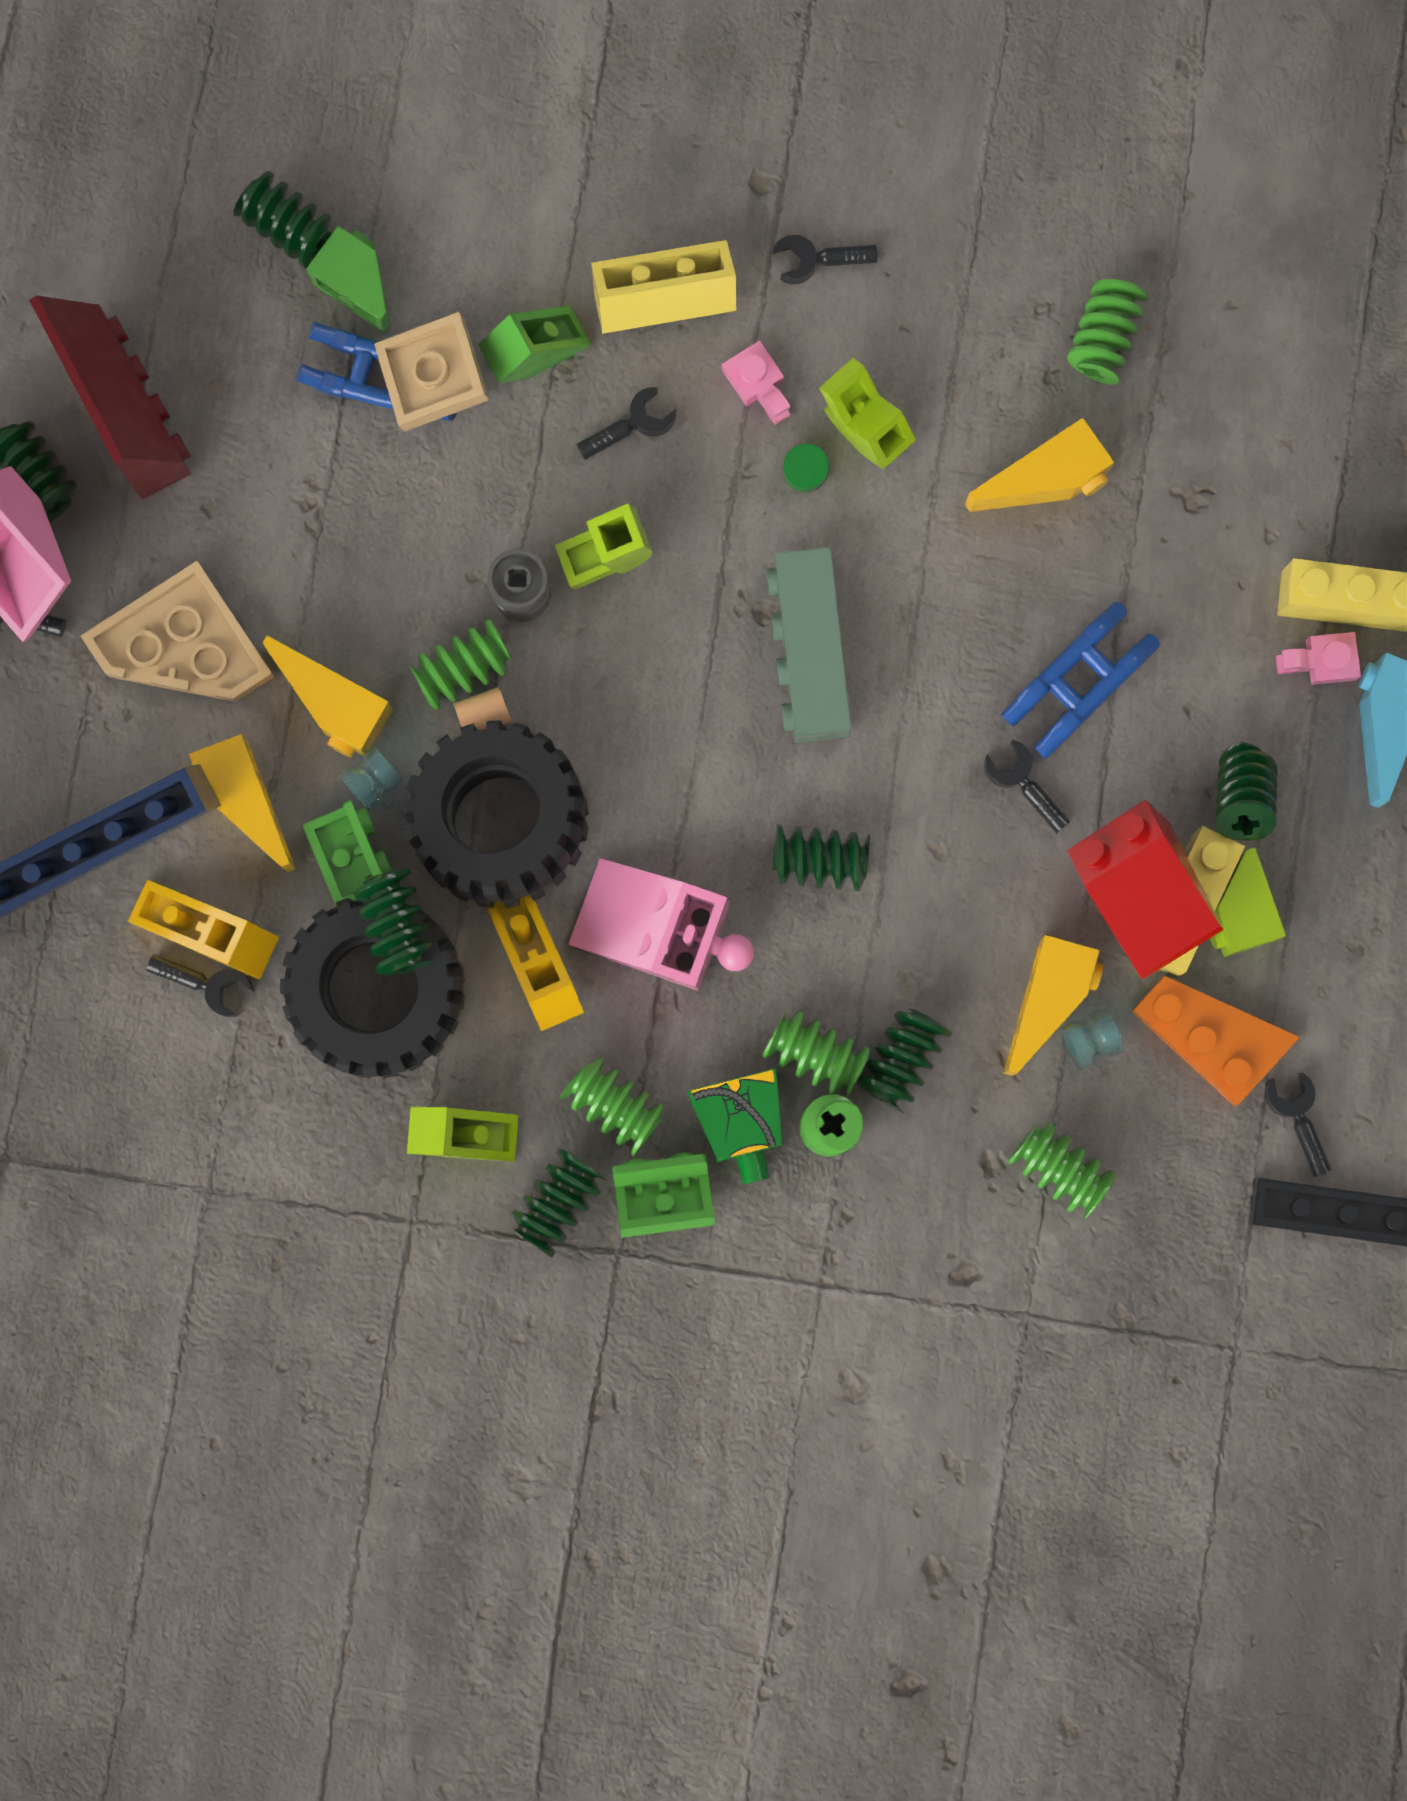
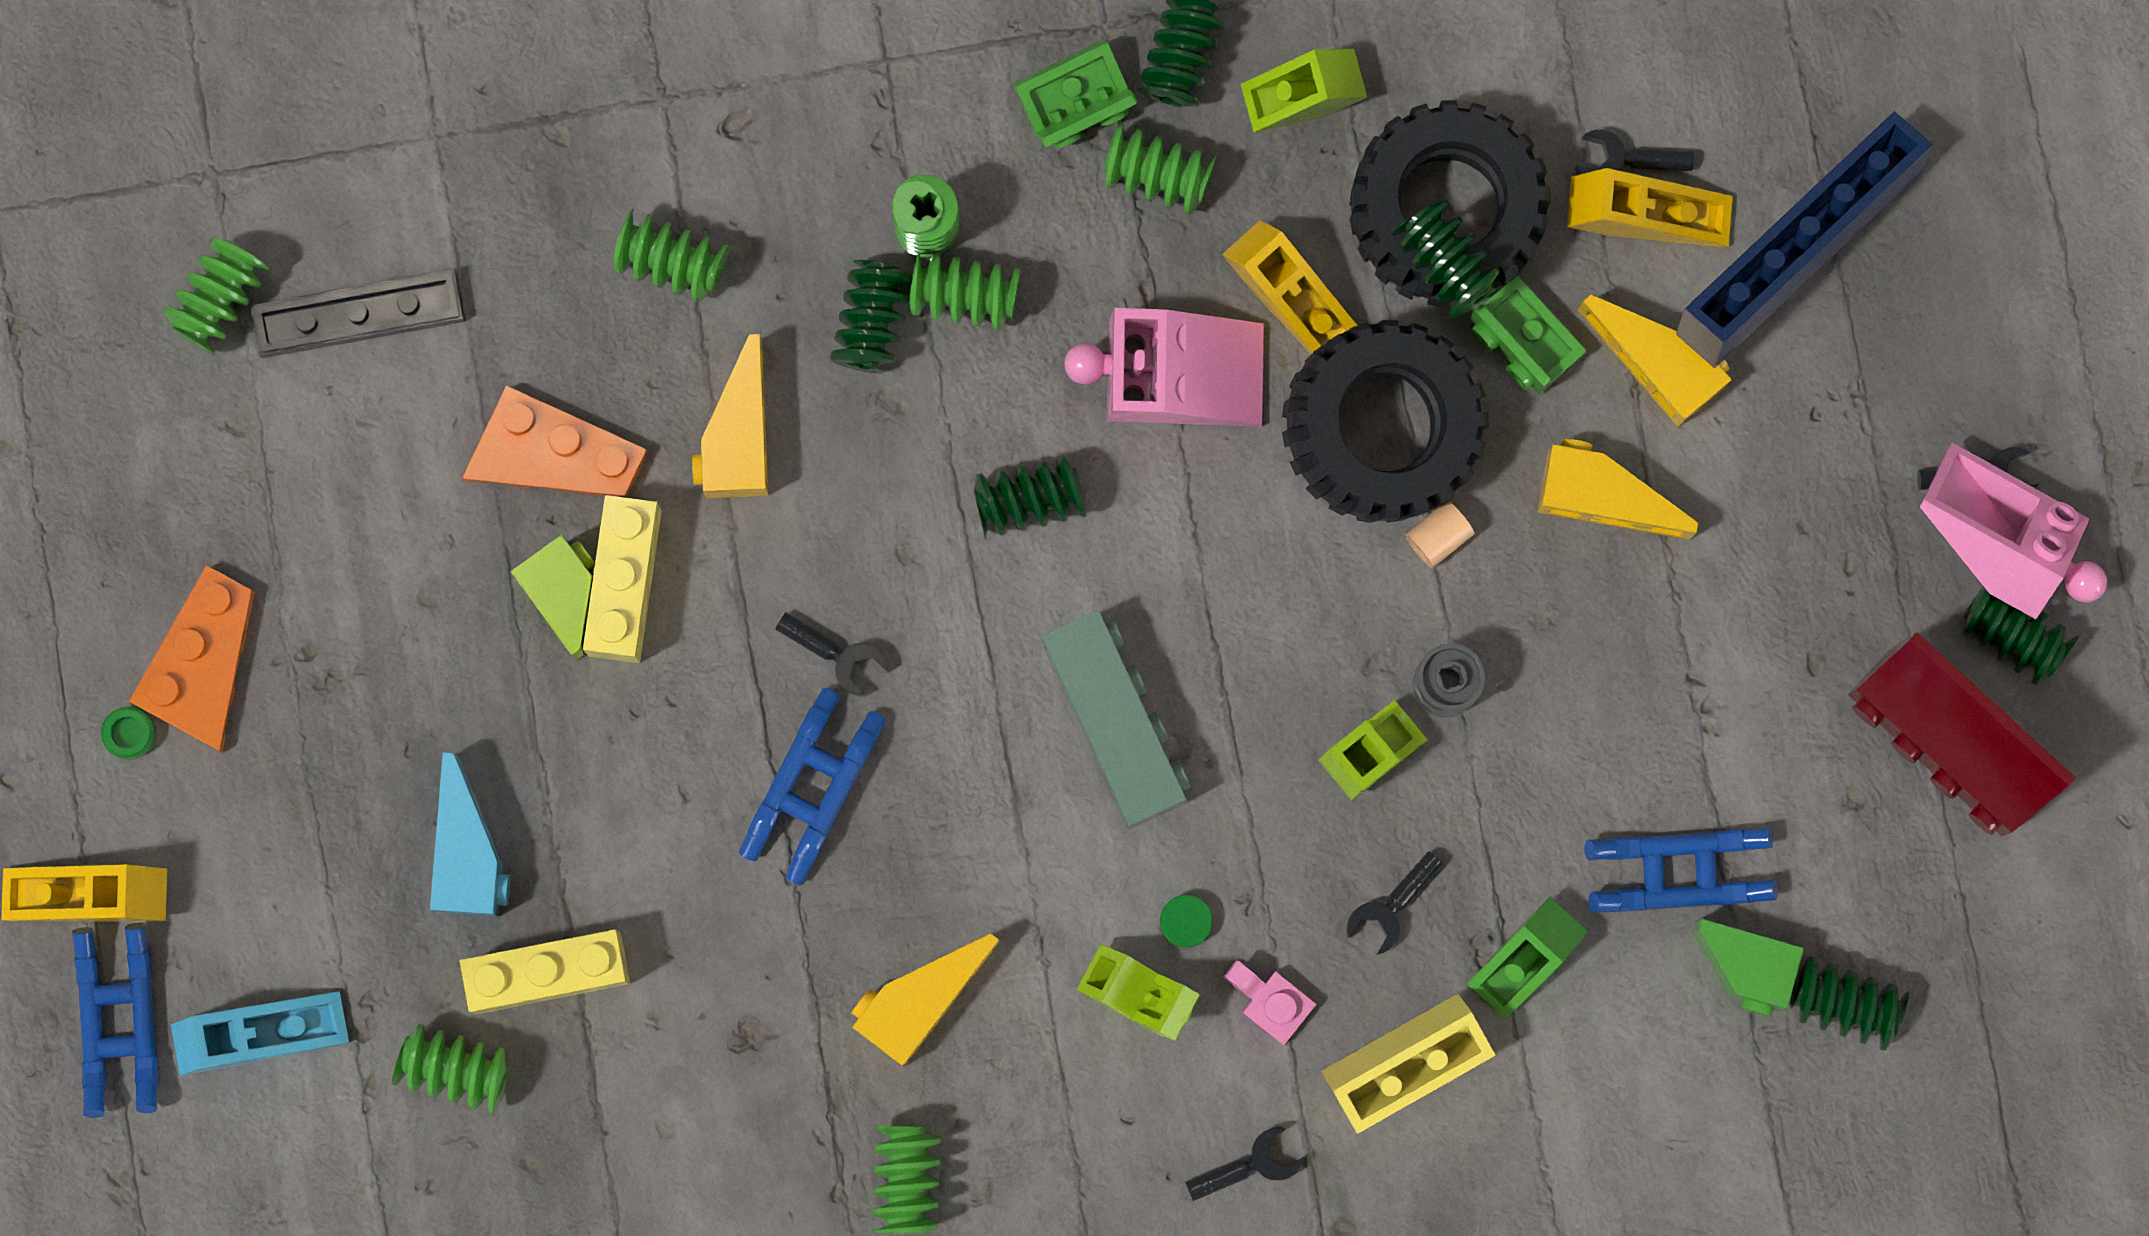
camera: 160 degrees right, 0 degrees up
(180, 641) = (1787, 505): tan plate -> none
(363, 785) = (1533, 425): clear light blue wheel -> none
(431, 371) = (1626, 878): tan plate -> none
(461, 664) = (1480, 573): bright green piece -> none
(741, 1121) = (1021, 197): green torso -> none
(1092, 1039) = (671, 410): clear light blue wheel -> none
(1145, 888) = (675, 566): red slope -> none
(1246, 793) = (598, 708): dark green piece -> none
(1302, 1126) = (429, 388): black piece -> none
(1327, 658) = (552, 898): bright pink plate -> none

